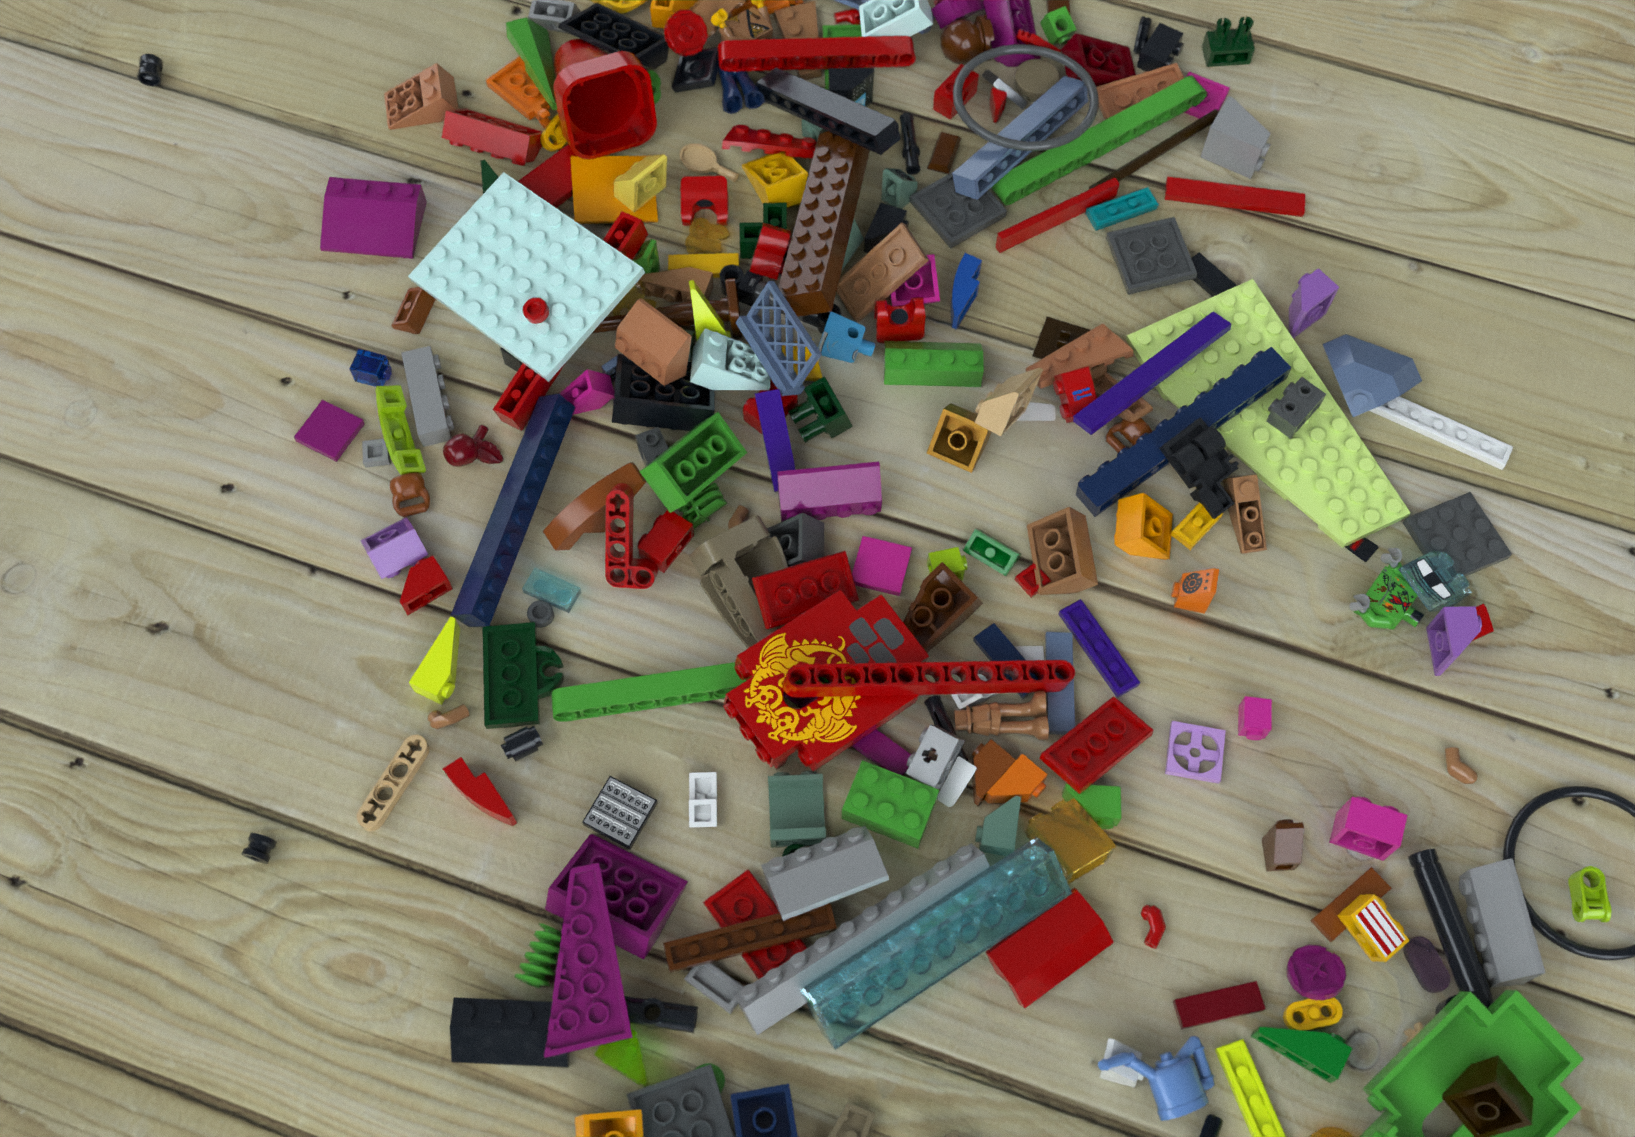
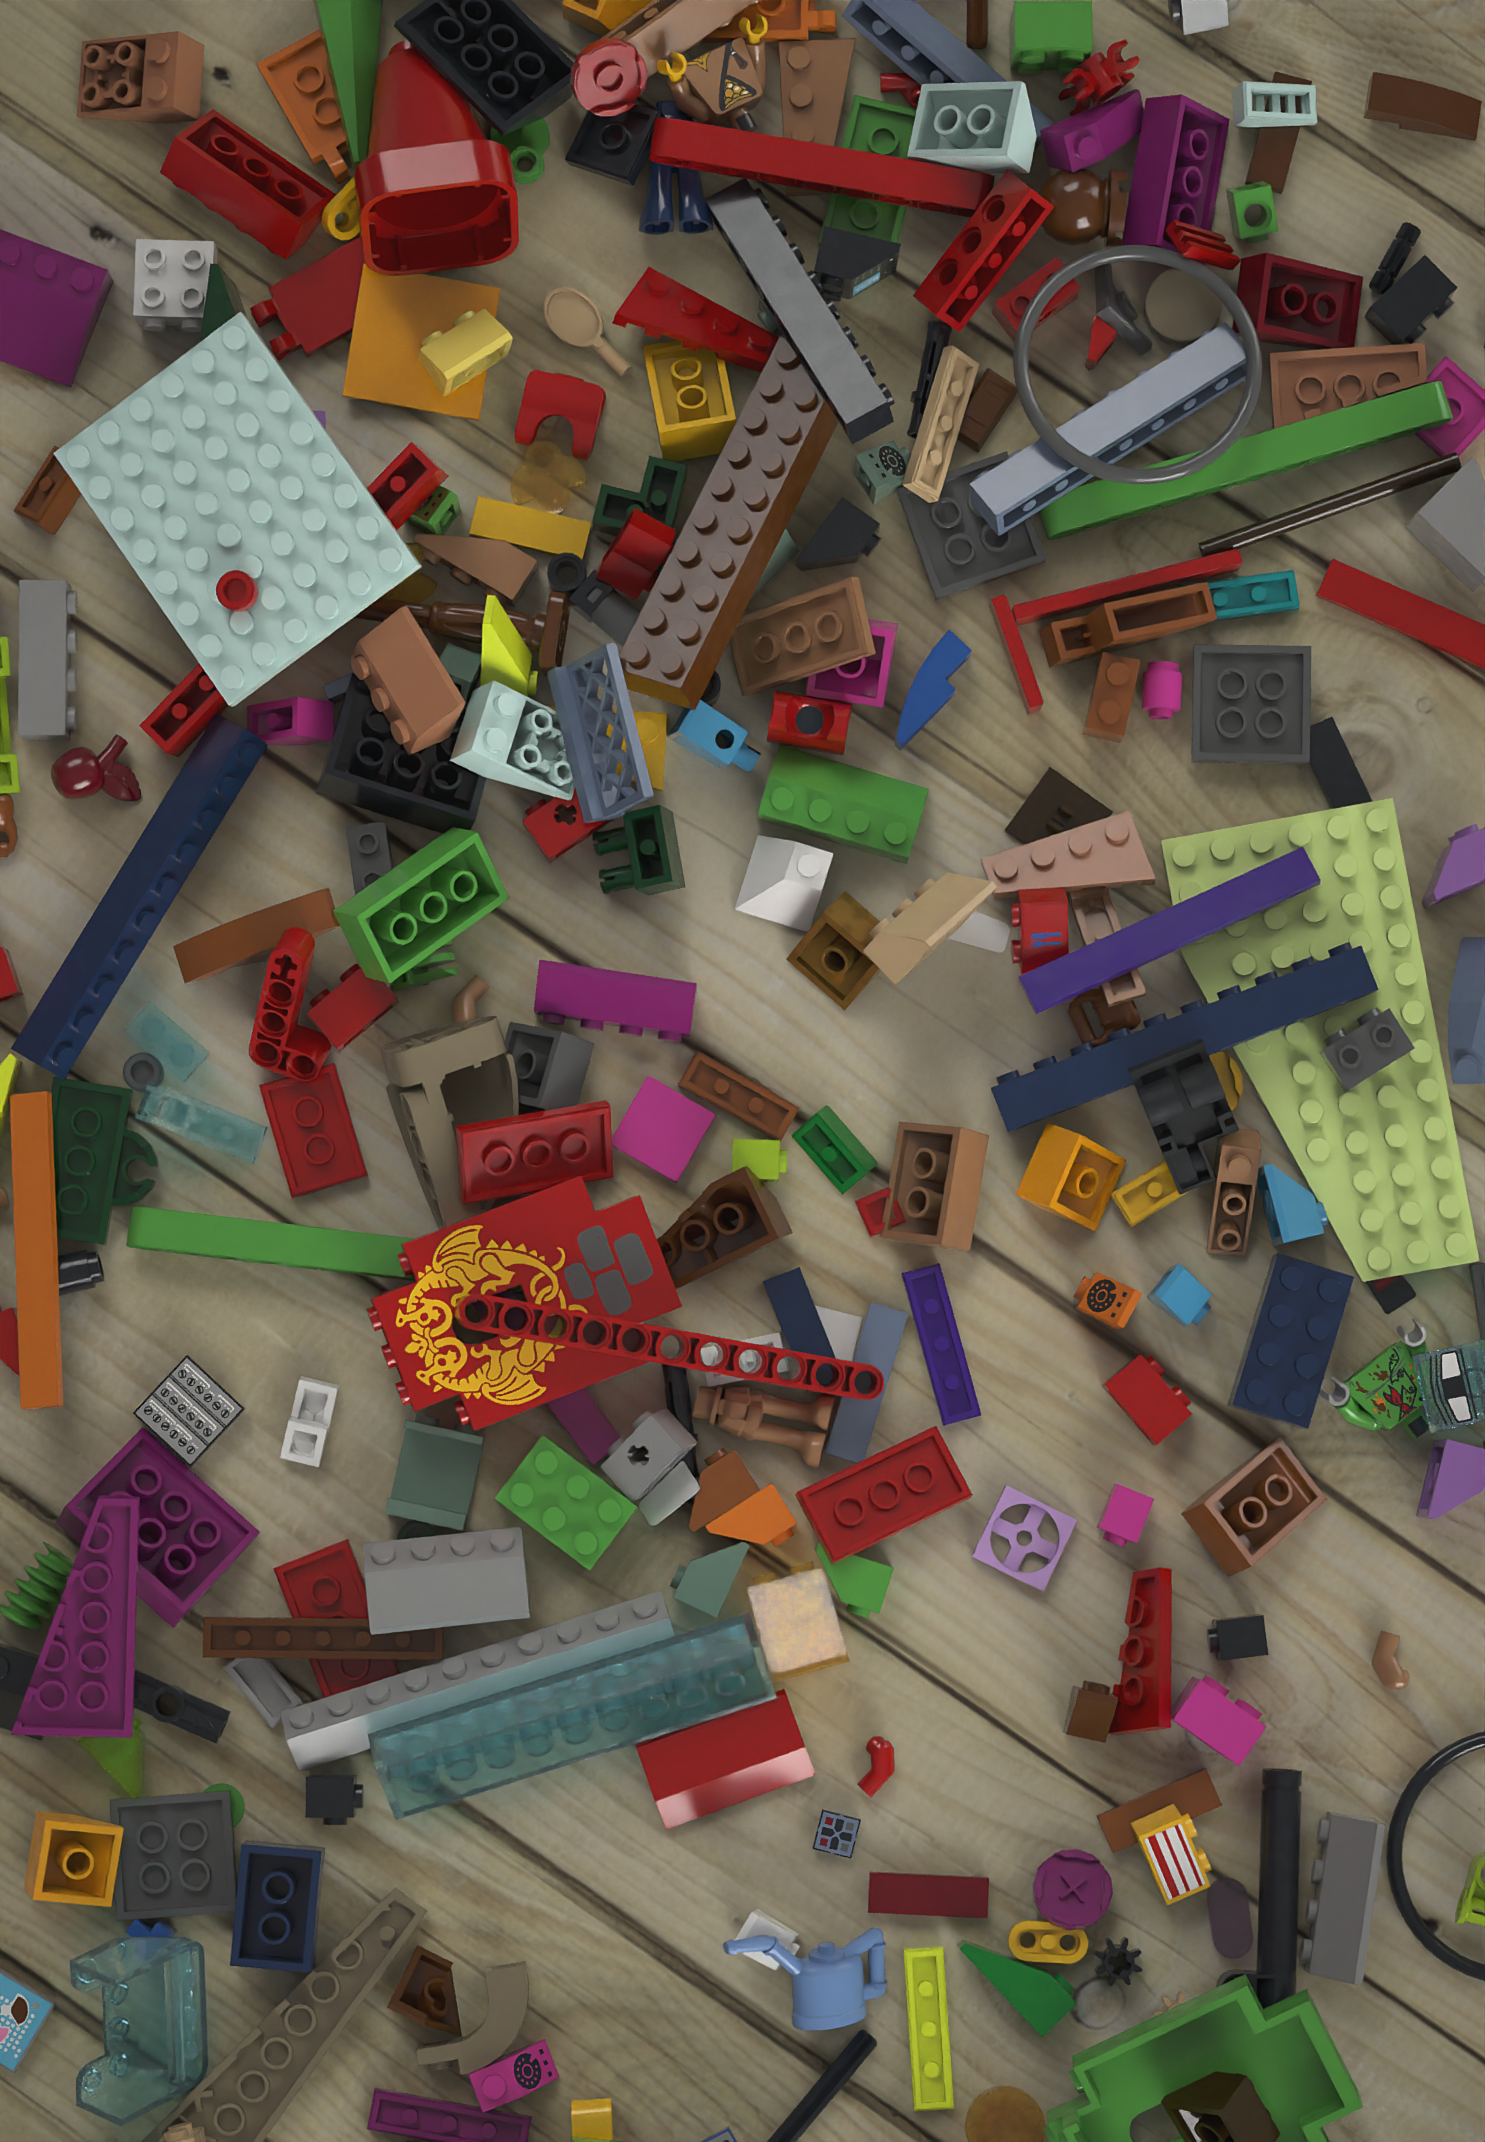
camera: 10 degrees right, 20 degrees up
(459, 186) = (171, 283): none -> white brick
(494, 734) = (36, 1250): none -> orange tile
(583, 630) = (201, 1122): none -> clear light blue slope
(659, 621) = (313, 1132): none -> red tile
(774, 433) = (559, 886): dark purple tile -> none
(786, 1048) = (333, 1798): none -> black brick
(912, 409) = (784, 882): none -> white slope
(919, 68) = (983, 251): none -> red brick
(920, 534) = (738, 1096): none -> dark orange tile
(924, 158) = (940, 424): none -> tan tile
(1007, 261) = (1016, 654): none -> red tile
(1064, 230) = (1127, 623): none -> dark orange slope
(1070, 269) = (1111, 697): none -> dark orange brick
(1097, 259) = (1162, 689): none -> dark pink brick
(1141, 979) = (836, 1833): none -> tile
(1238, 576) = (1181, 1296): none -> dark azure slope
(1241, 644) = (1147, 1398): none -> red brick
(1282, 509) = (1289, 1207): none -> dark azure slope
(1305, 800) = (1146, 1654): none -> red wing
(1316, 587) = (1290, 1341): none -> dark blue brick
(1333, 694) = (1254, 1507): none -> dark orange slope
(1358, 775) = (1238, 1637): none -> black brick
(1361, 1019) = (1113, 1950): none -> black gear

